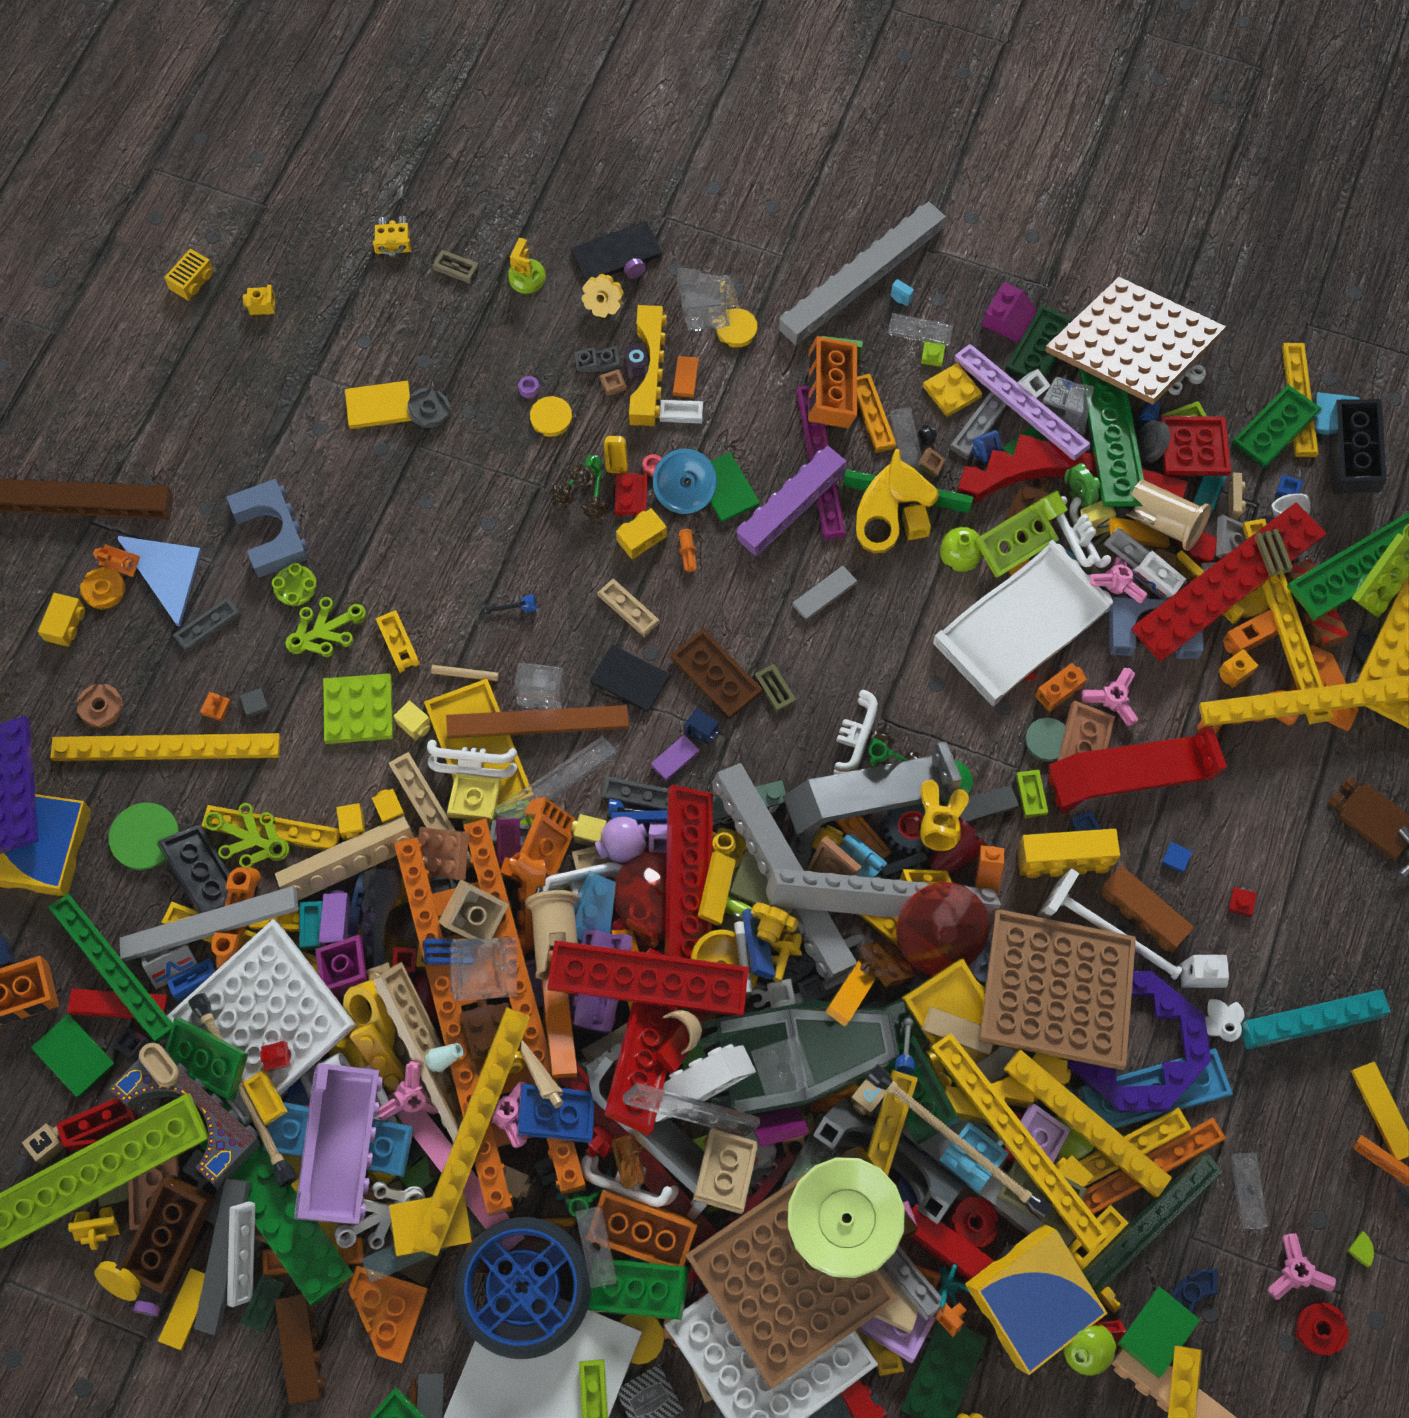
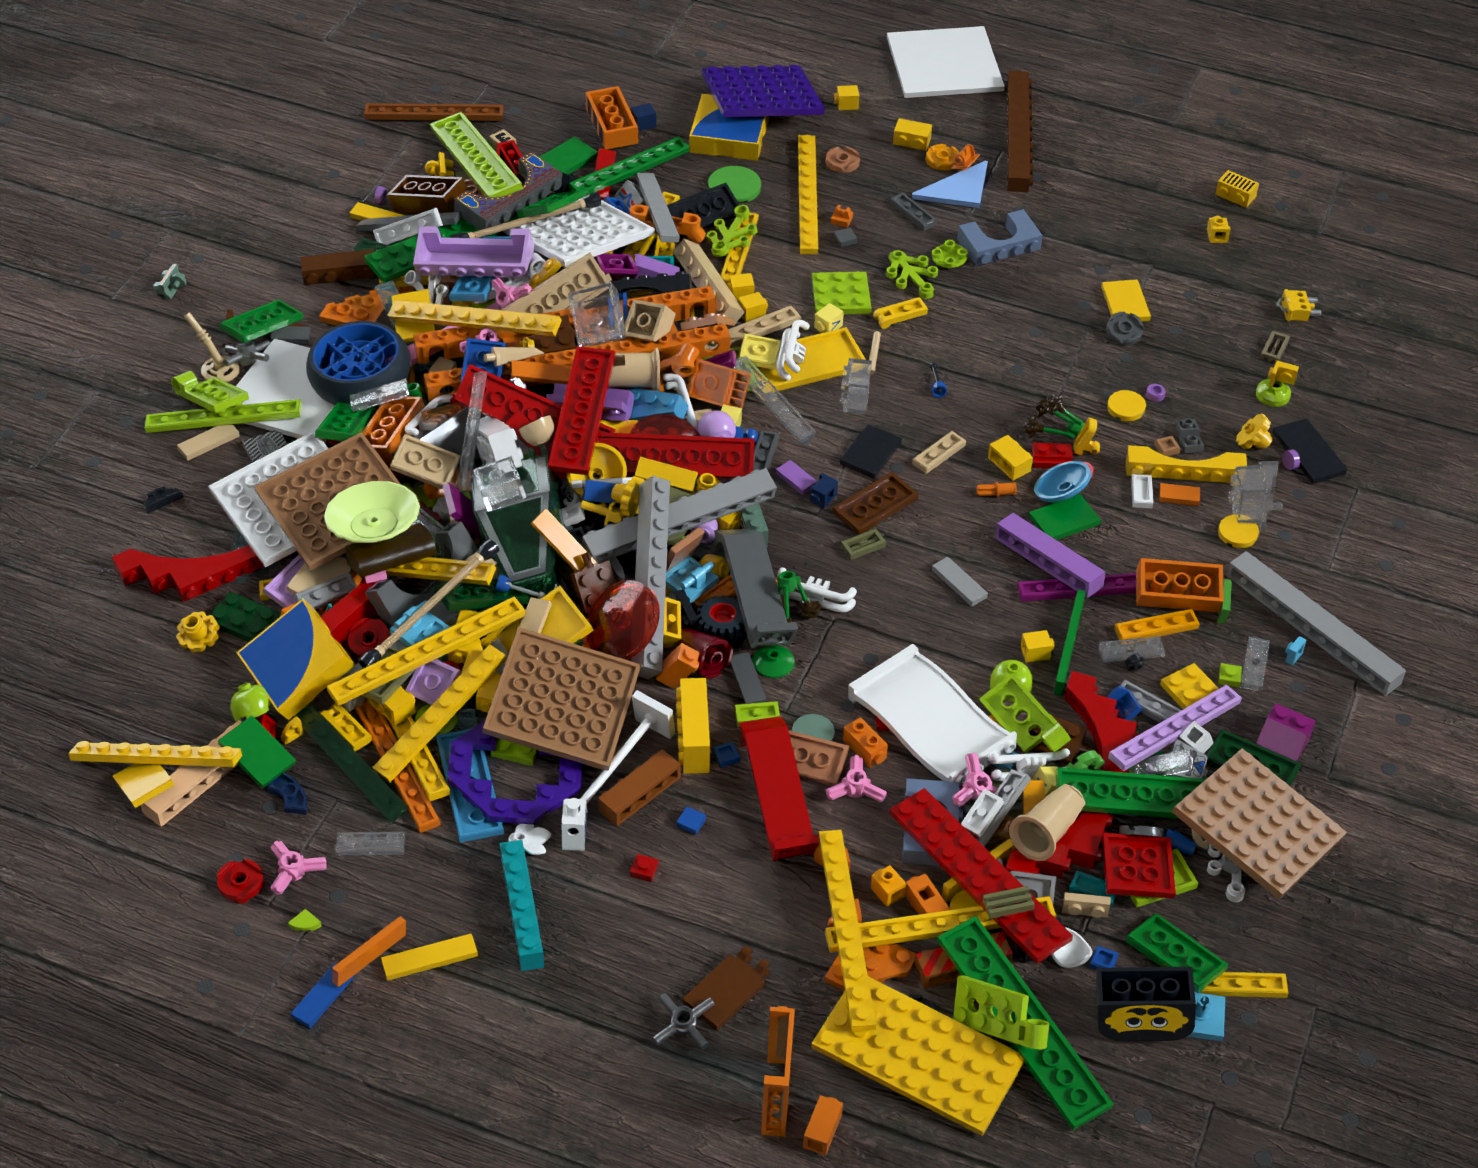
camera: 90 degrees right, 20 degrees down
(119, 1283) = (403, 170): yellow tile -> none
(159, 1064) = (545, 173): tan tile -> none
(265, 1097) = (505, 231): yellow tile -> none
(275, 1056) = (547, 229): red tile -> none
(442, 1057) = (530, 302): light aqua cone -> none
(537, 721) = (828, 392): dark orange tile -> none
(636, 360) = (1190, 452): clear purple brick -> none
(892, 486) = (1045, 610): yellow animal -> none
(931, 462) = (1104, 663): medium nougat tile -> none
(940, 823) = (717, 619): yellow piece -> none

